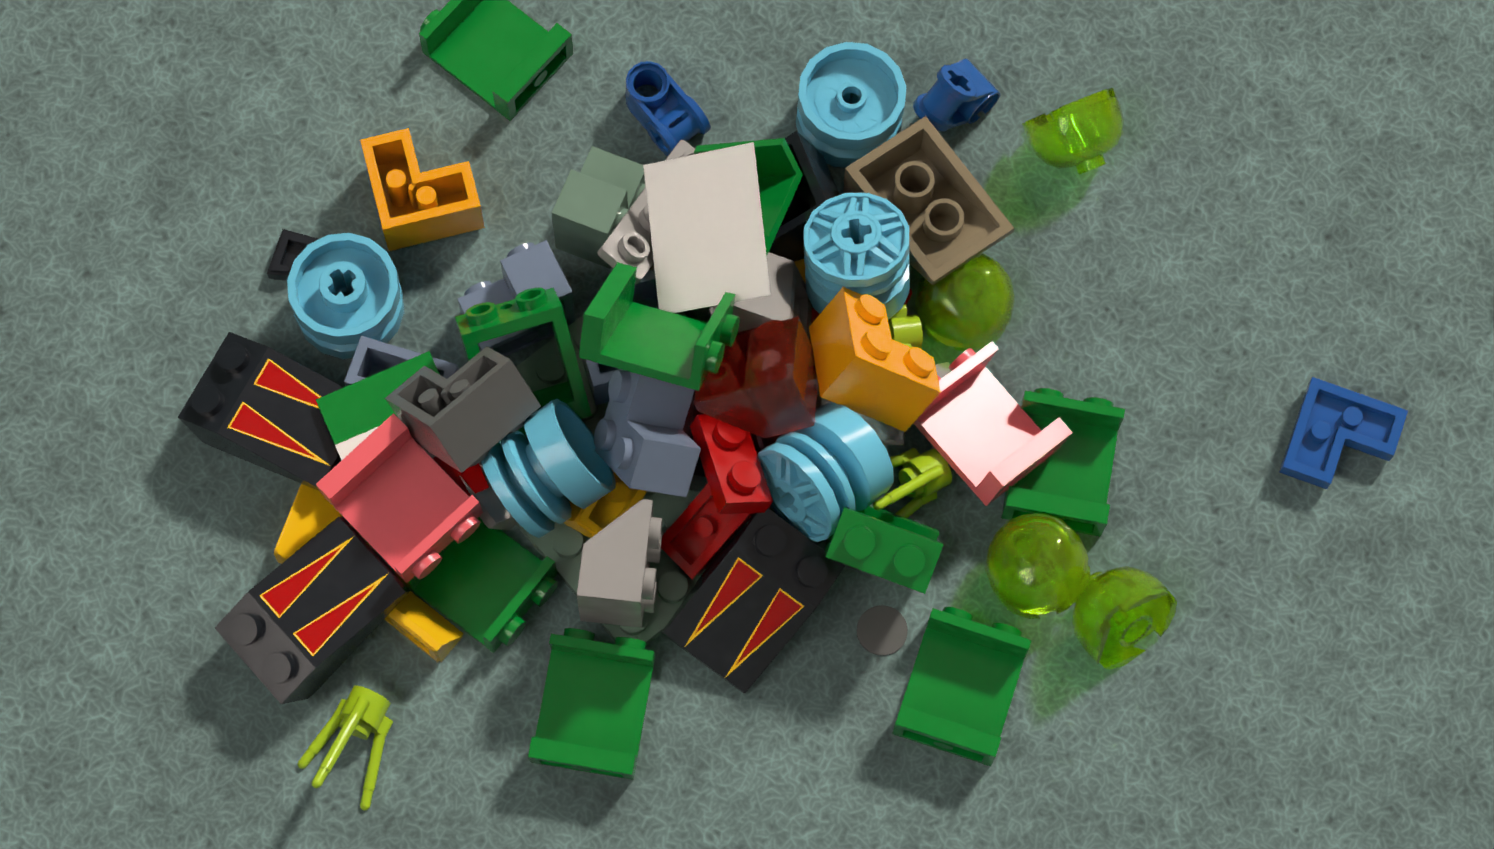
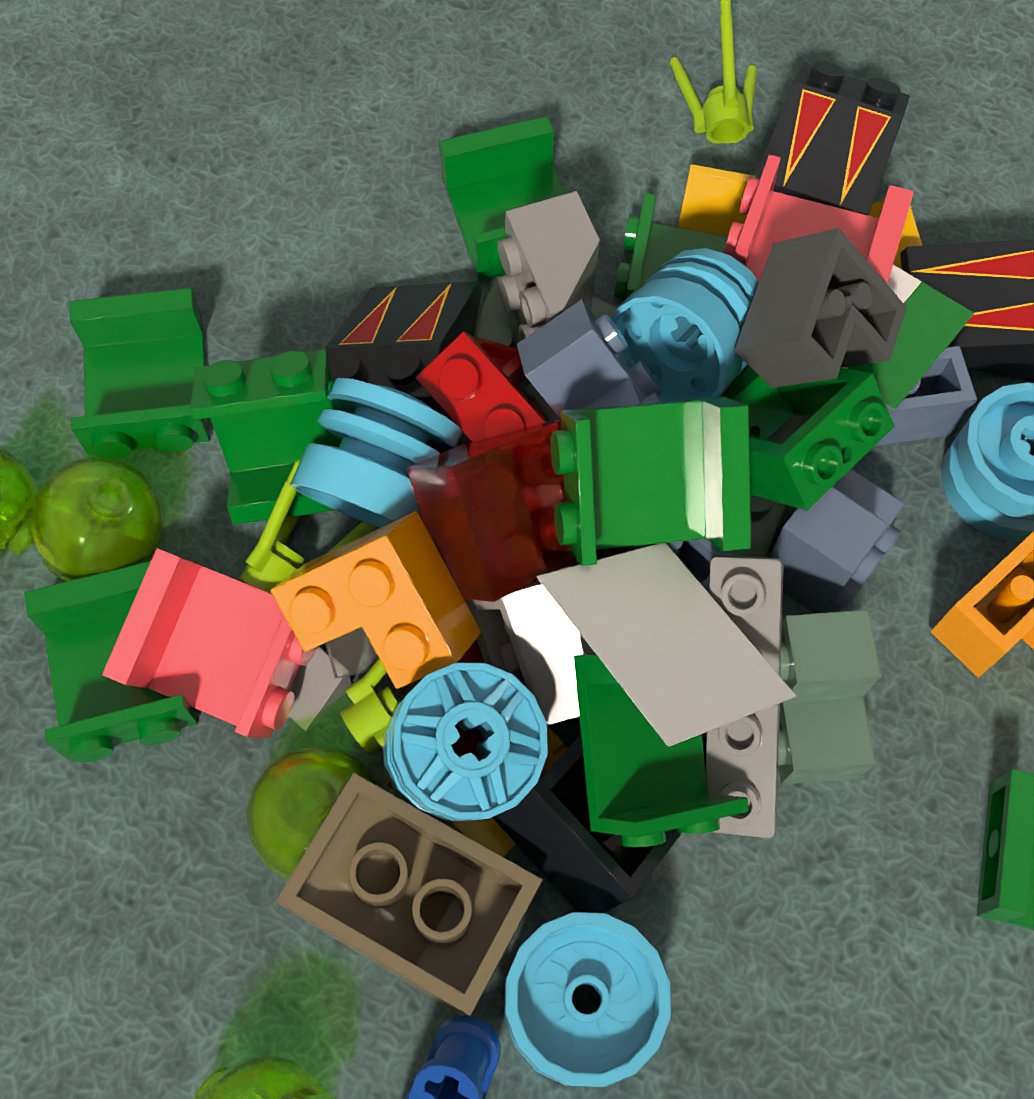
camera: 155 degrees right, 5 degrees down
(667, 115) = (817, 876): blue piece -> none

